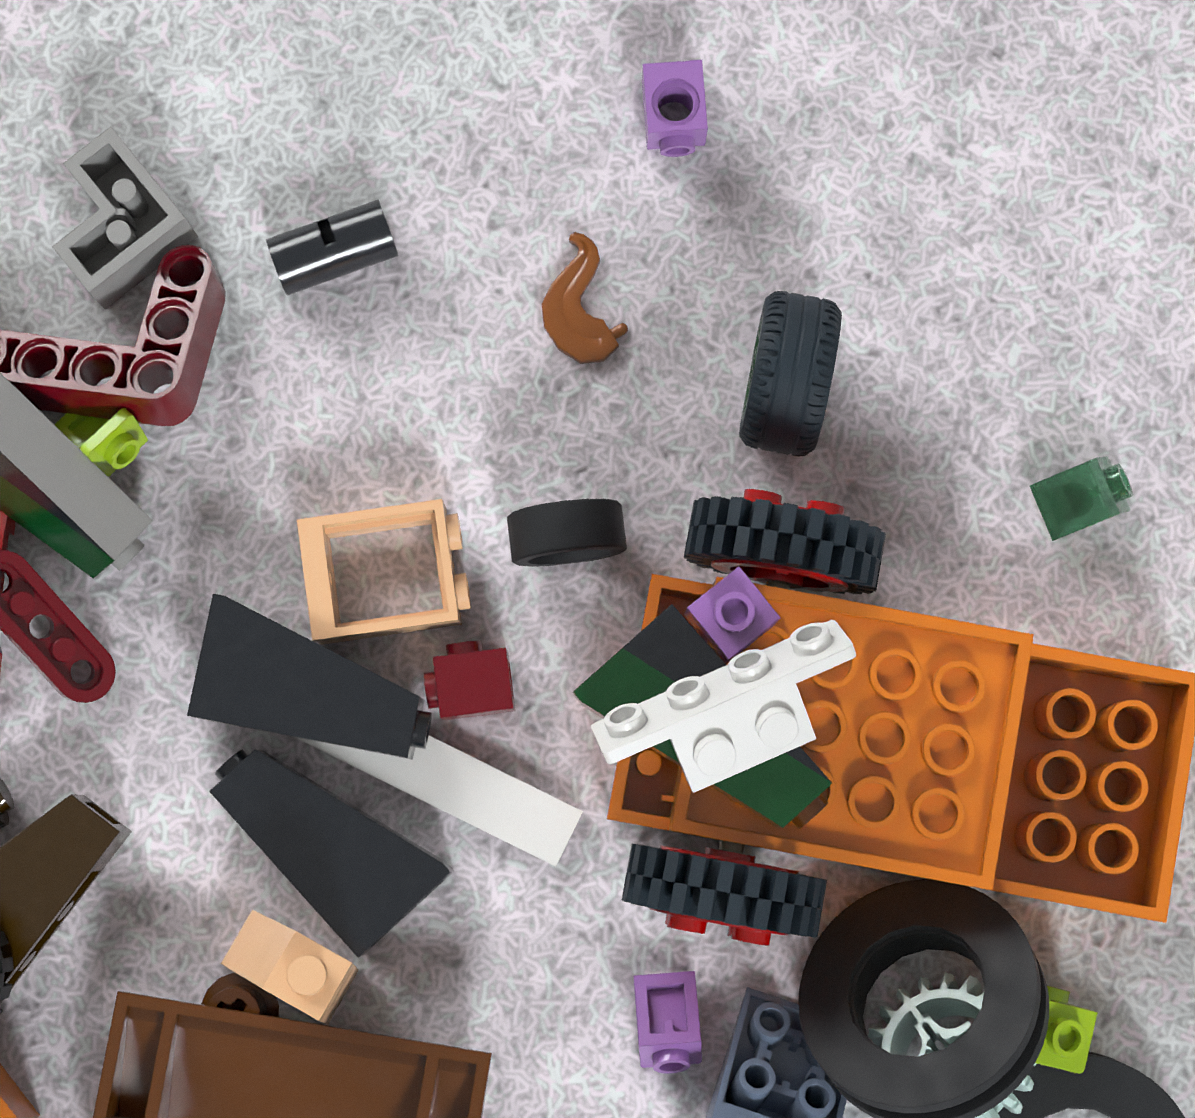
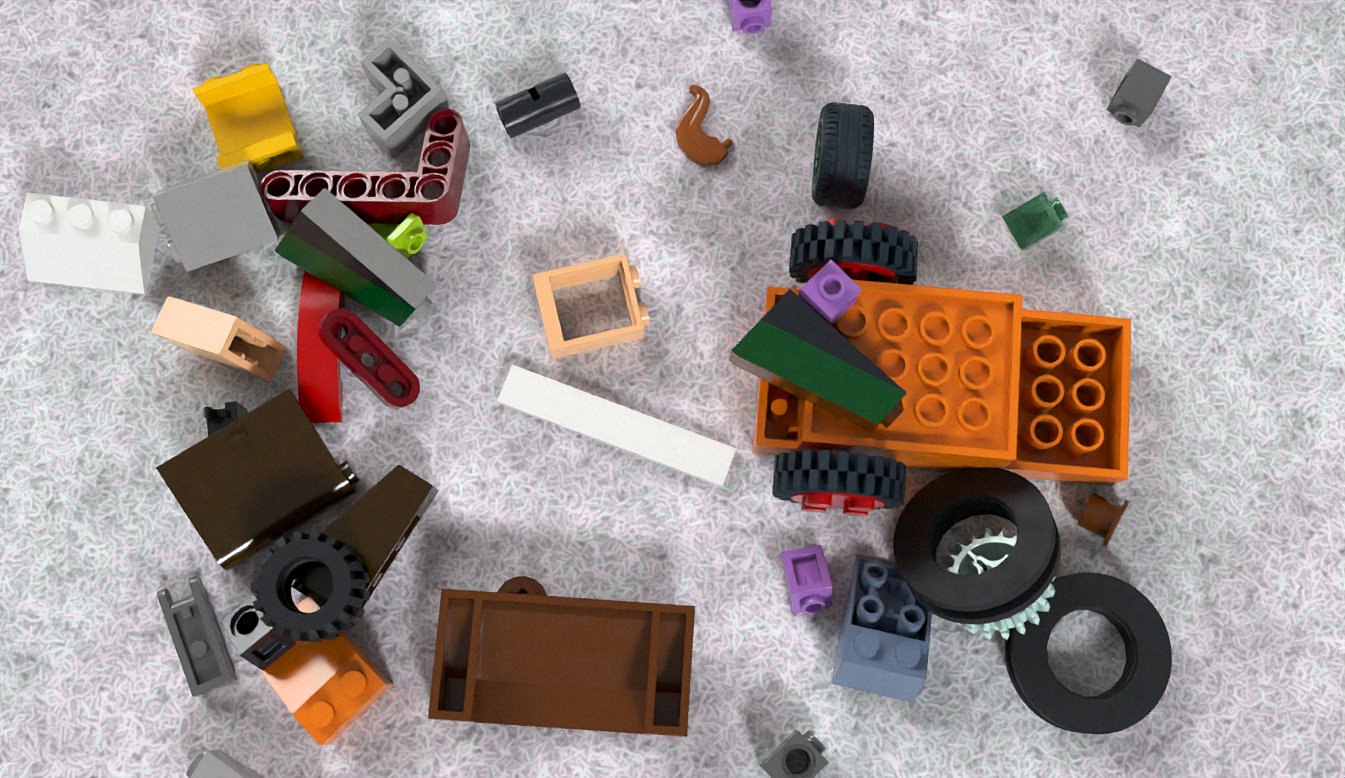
camera: 10 degrees left, 5 degrees down
(288, 685) = (540, 382): black slope -> none
(290, 966) = (556, 562): light nougat slope -> none
(333, 853) = (575, 488): black slope -> none
(470, 682) = (655, 371): dark red brick -> none
(566, 532) = (708, 268): black tyre -> none
(733, 713) = (839, 352): white bracket -> none
(1067, 1033) = (1073, 559): lime bracket -> none
(1125, 969) = (1102, 517): none -> reddish brown piece

